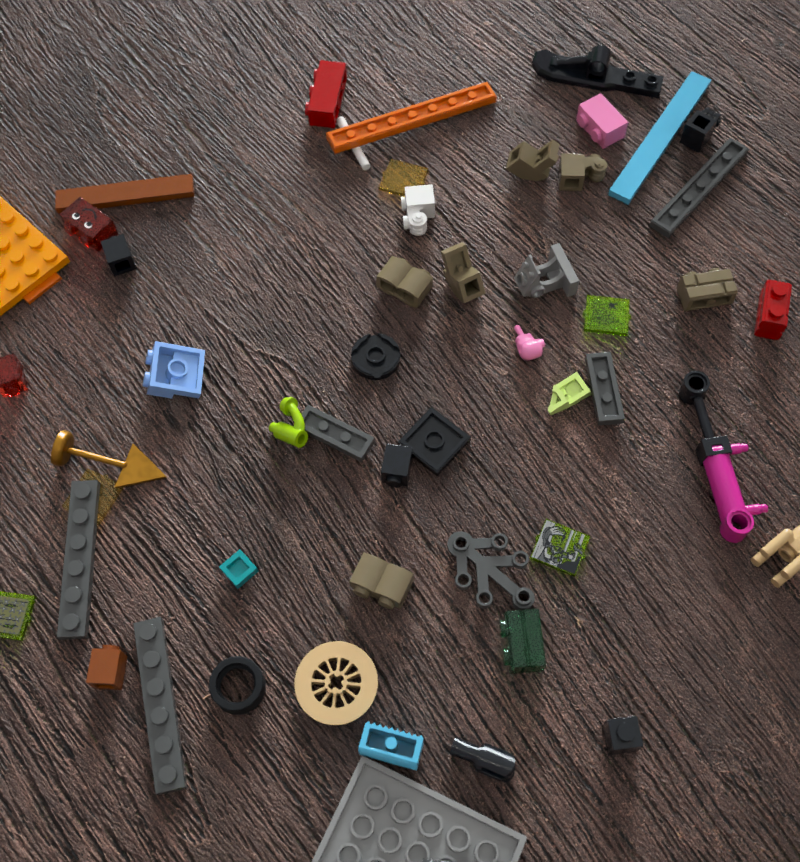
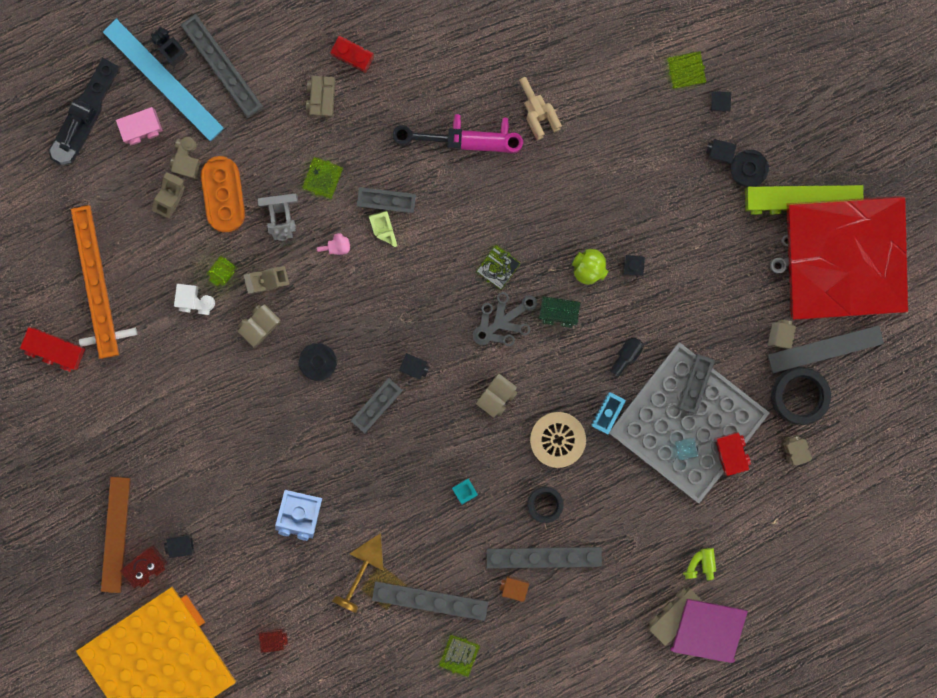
camera: 80 degrees left, 25 degrees up
(287, 433) = (372, 436): lime plant -> none
(401, 175) = (154, 303): clear yellow piece -> none
(435, 441) = (398, 334): black tile -> none
(459, 229) = (221, 271): none -> clear neon green brick
(551, 217) = (222, 194): none -> orange tile
(600, 671) = (590, 266): none -> lime plant

